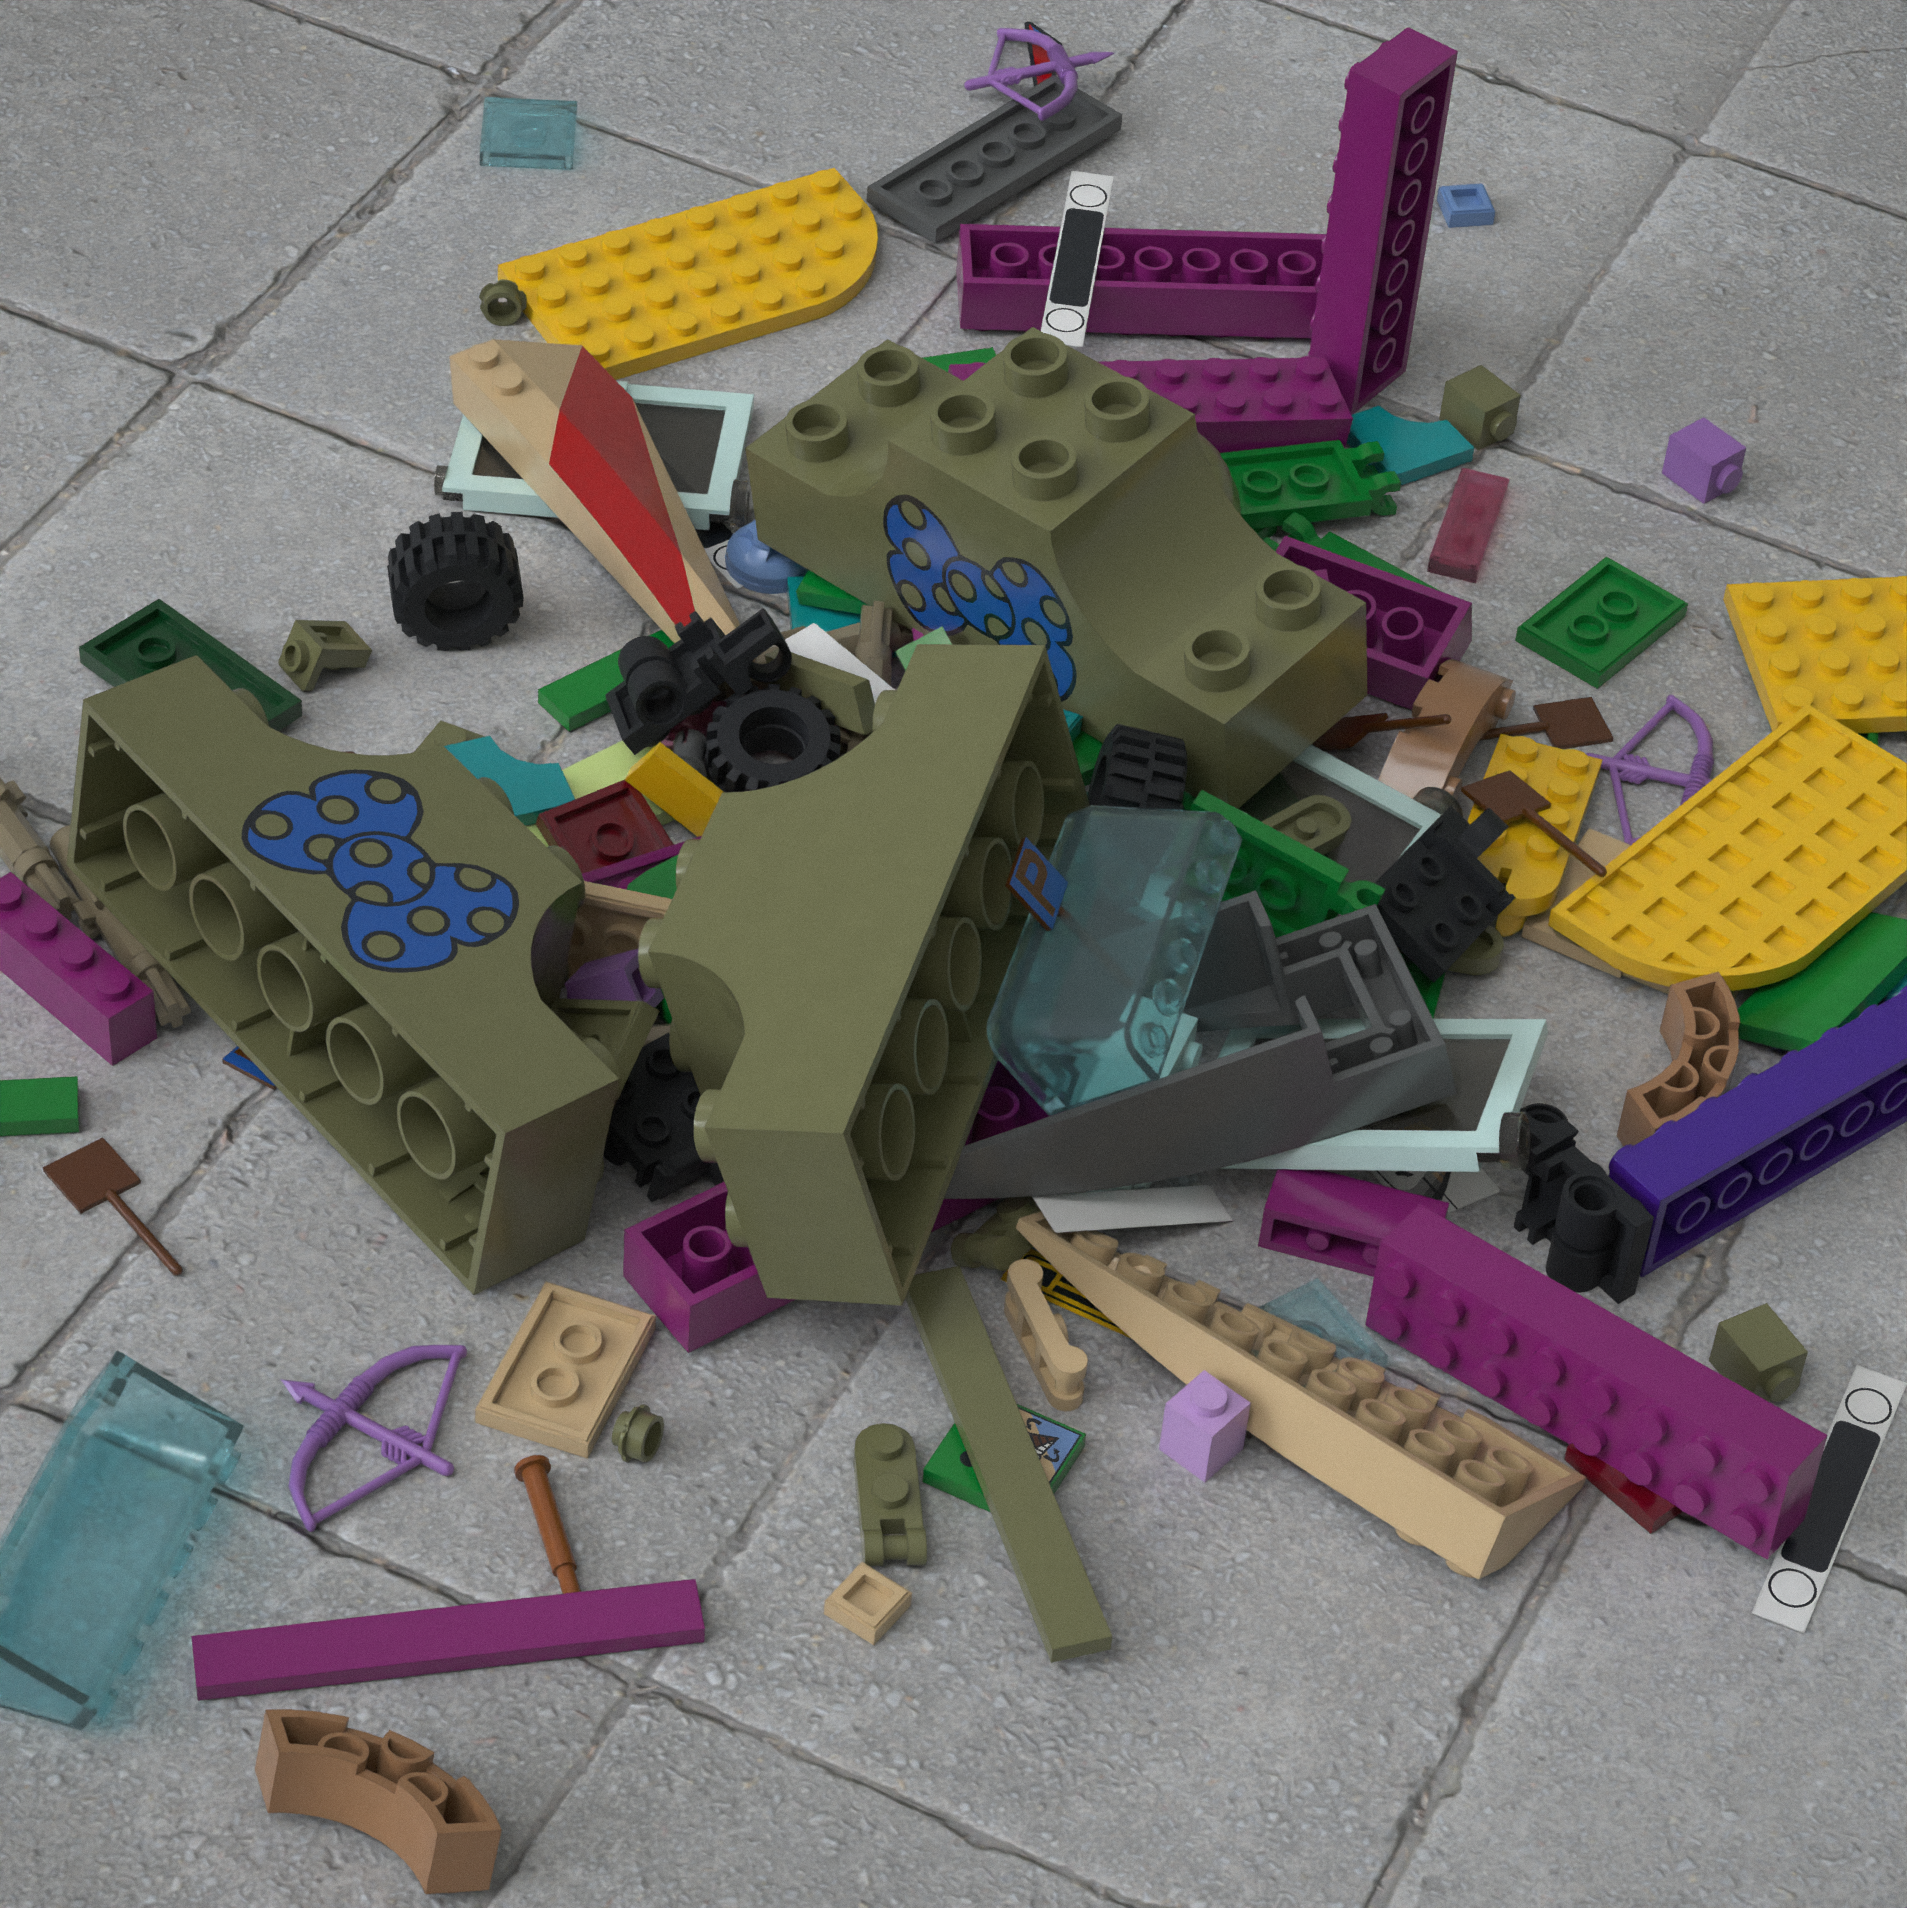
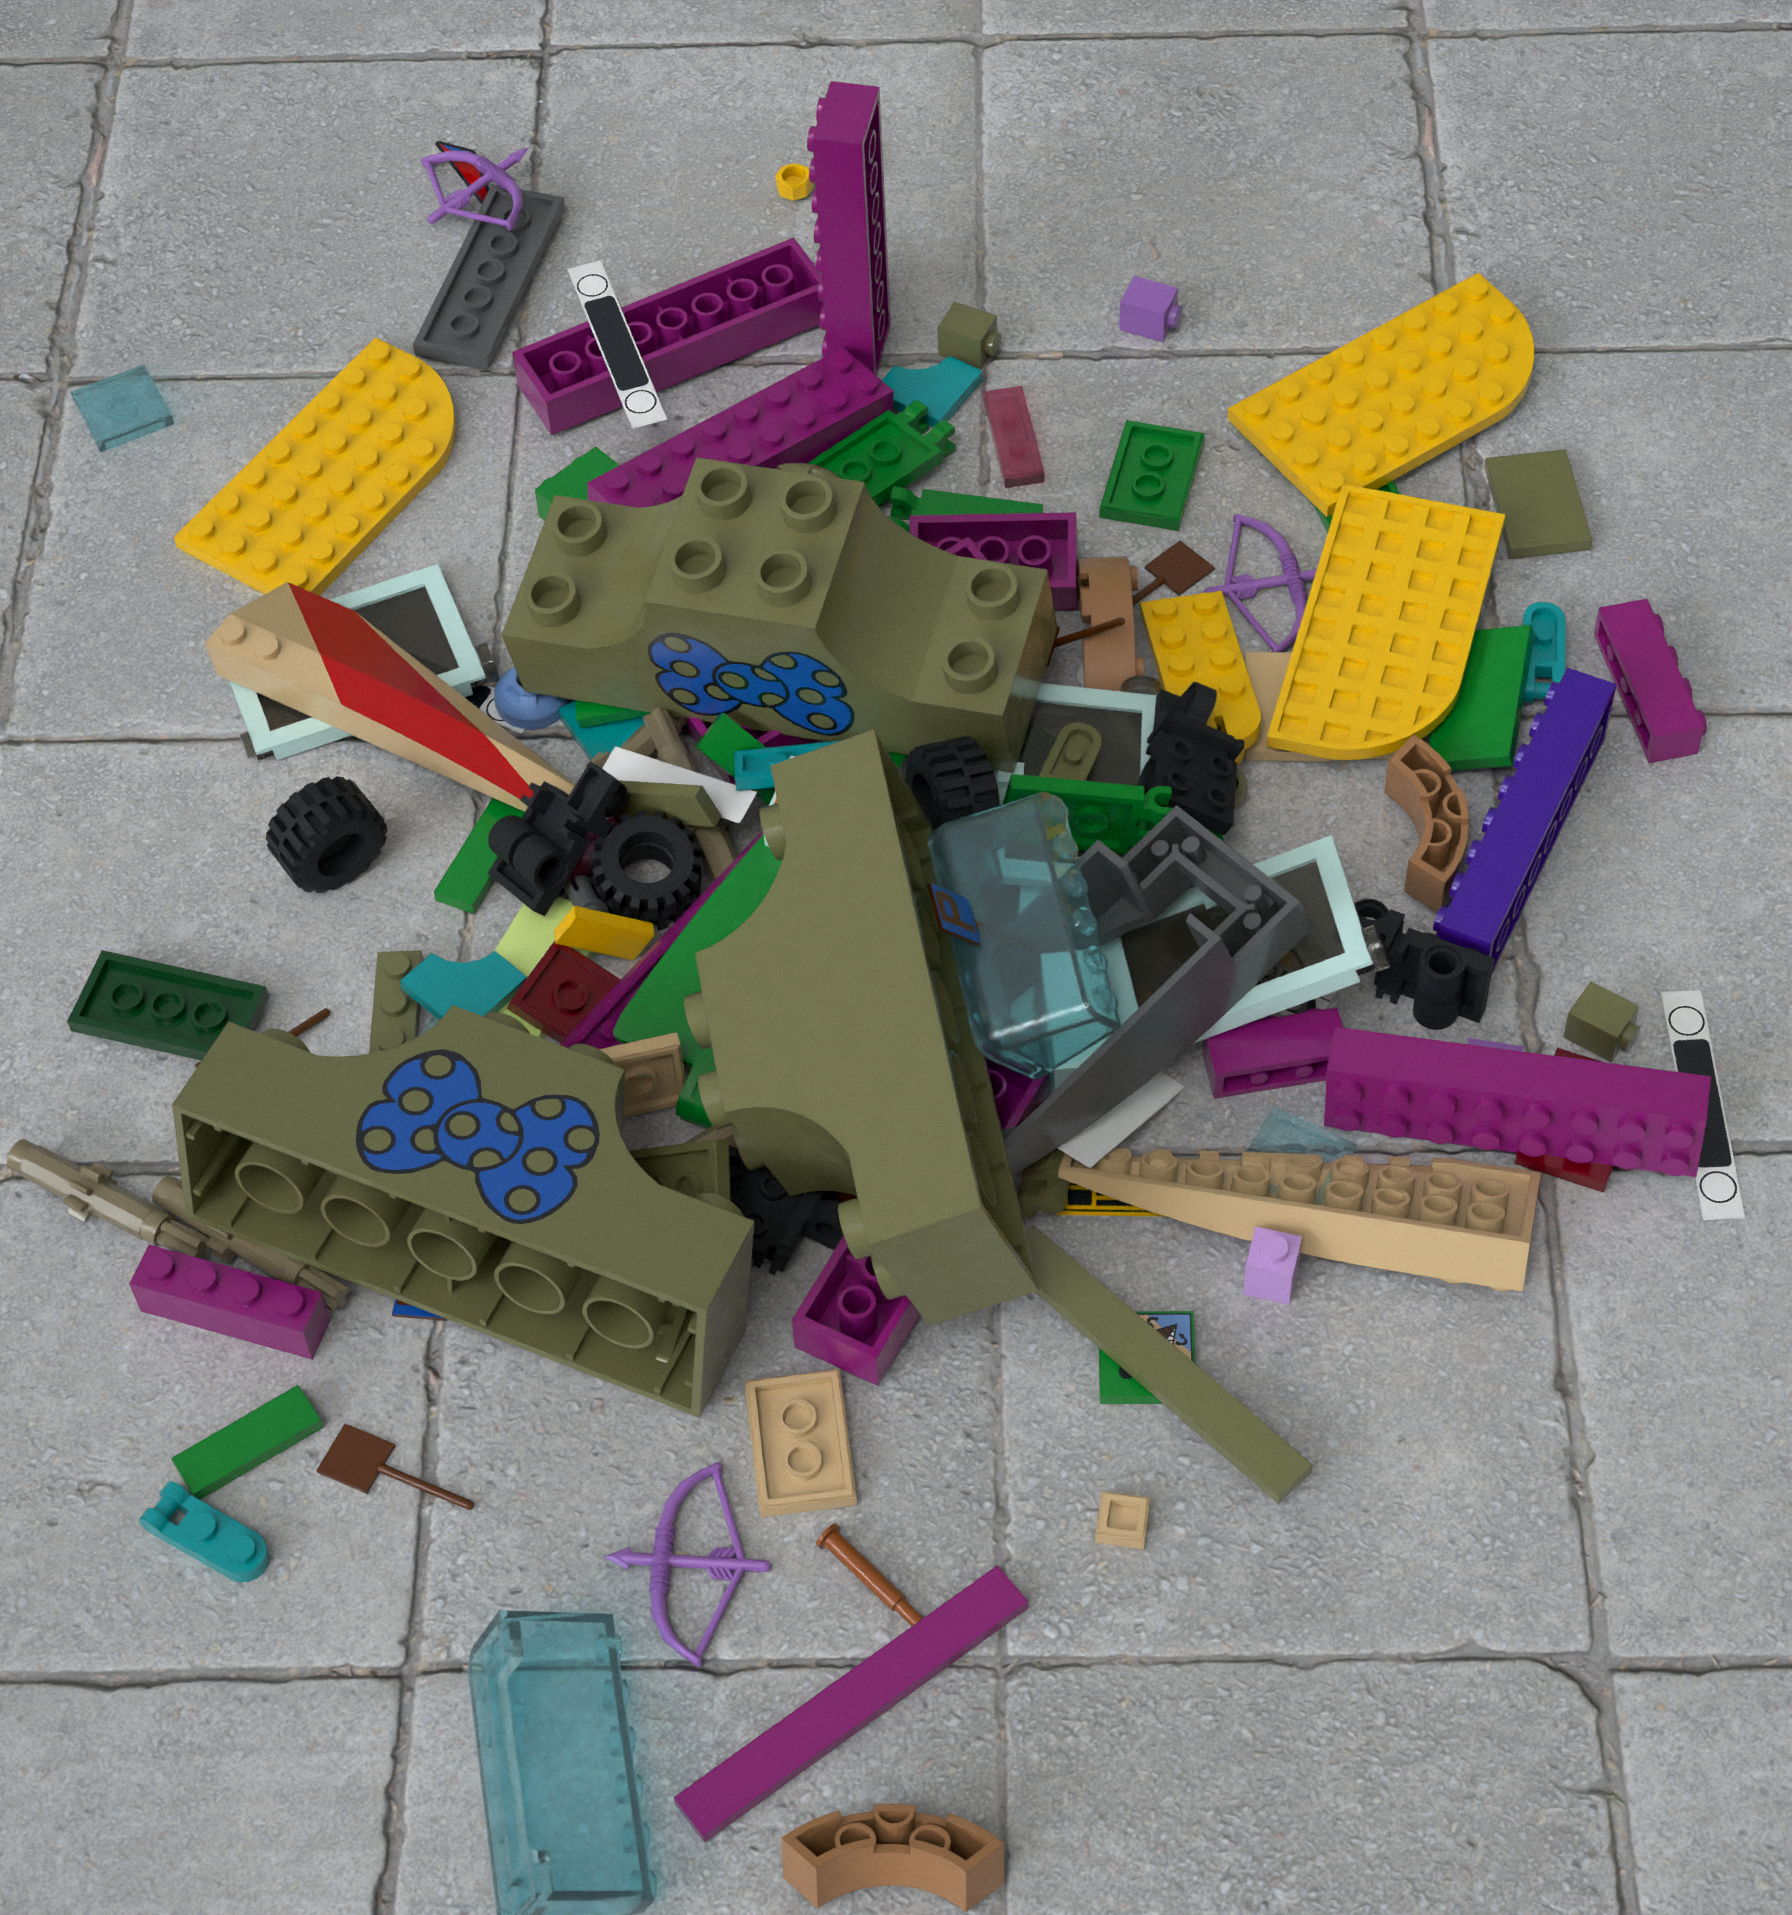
camera: 20 degrees left, 10 degrees up
(320, 645) = (249, 933): olive bracket -> none
(502, 312) = (197, 568): olive plate -> none
(612, 979) = (656, 1119): medium lavender brick -> none
(638, 1434) = (885, 1470): olive plate -> none
(888, 1496) = (1087, 1429): olive plate -> none
(1044, 1337) = (1119, 1249): tan plate -> none
(1514, 800) = (1189, 659): reddish brown piece -> none

